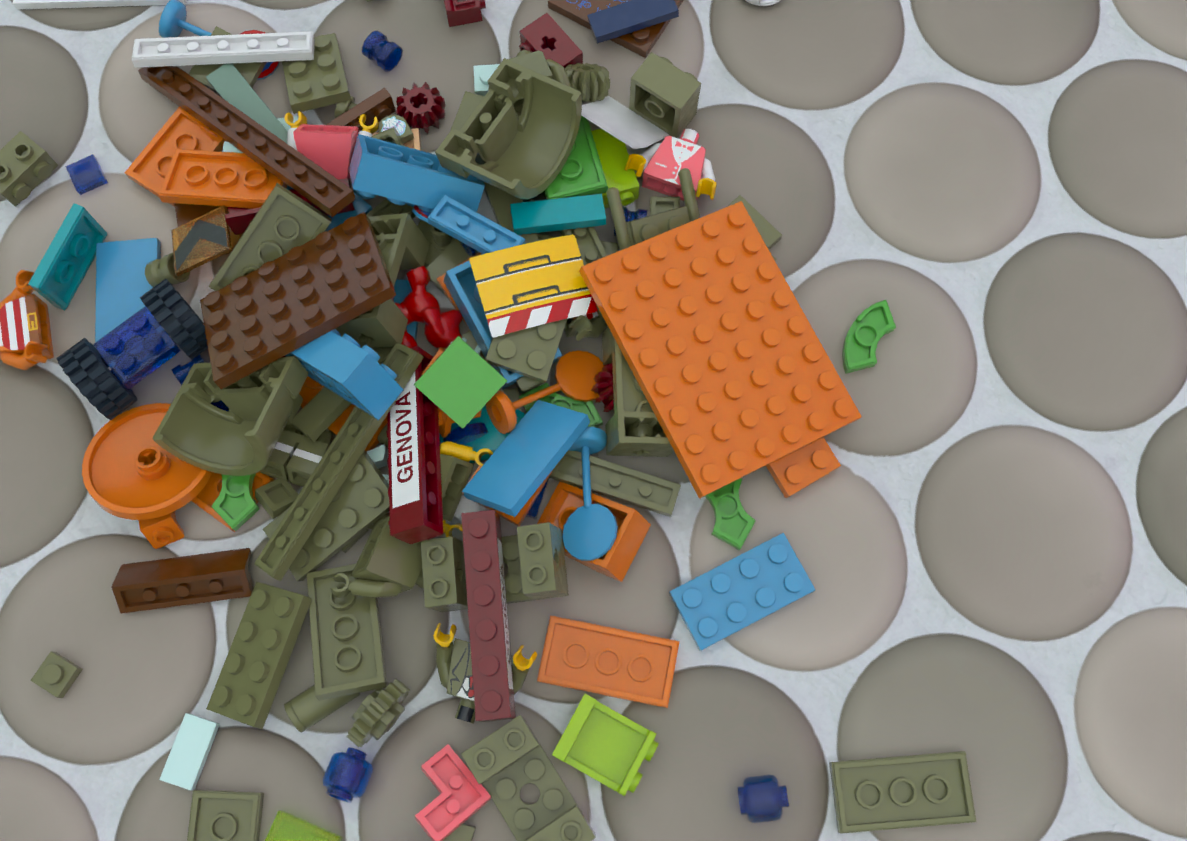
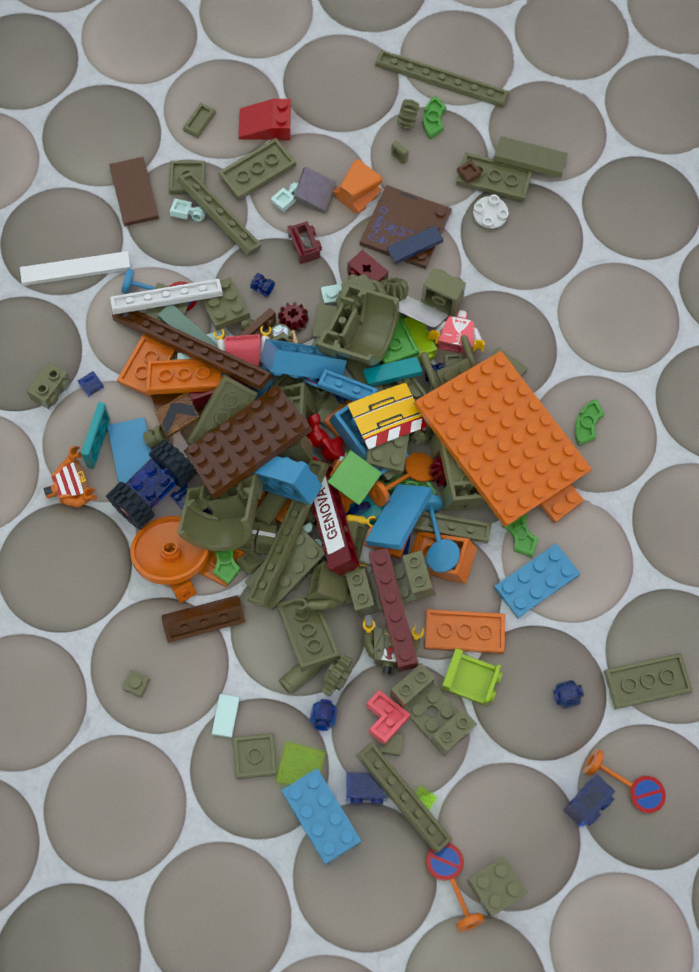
camera: 10 degrees left, 5 degrees down
(259, 655) = (258, 653): olive plate -> none

